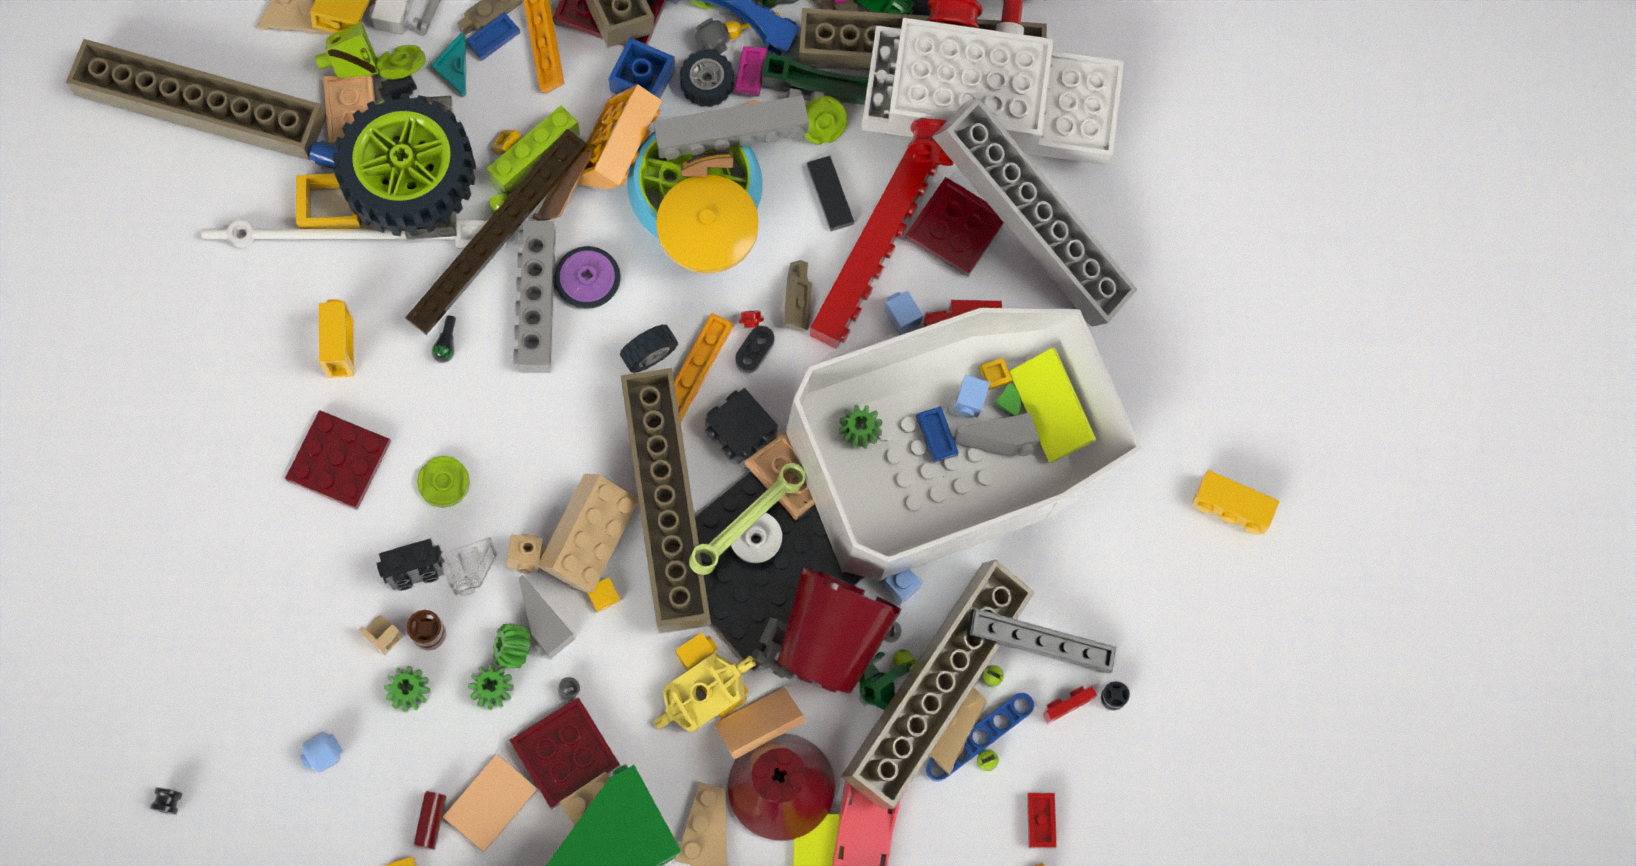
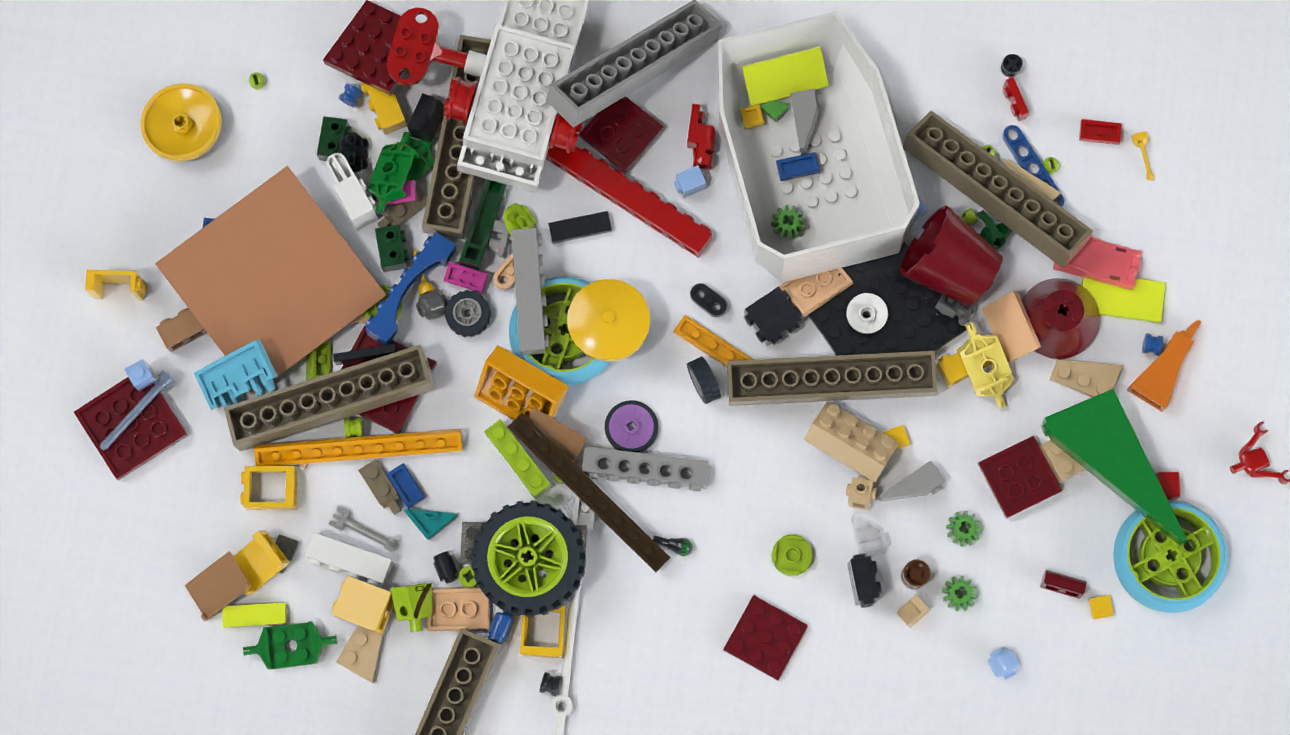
camera: 75 degrees left, 5 degrees up
(265, 216) = (550, 684): none -> black wheel
(336, 339) = (667, 629): yellow window -> none
(402, 62) = (424, 562): lime tile -> none
(490, 803) = (1052, 537): light nougat tile -> none
(496, 201) = (560, 490): lime hinge -> none
(505, 141) = (506, 481): yellow tile -> none
(511, 646) = (934, 509): bright green gear -> none
(565, 684) = (973, 467): dark grey hinge -> none
(642, 66) = (459, 364): blue brick -> none
(698, 165) = (558, 320): medium nougat slope -> none
(747, 518) = (855, 315): yellowish green piece -> none
(751, 318) = (682, 300): red plate -> none
(798, 297) = (667, 261): dark tan hinge -> none
(971, 396) = (771, 136): light blue brick -> none
(1041, 640) = (969, 111): tile -> none

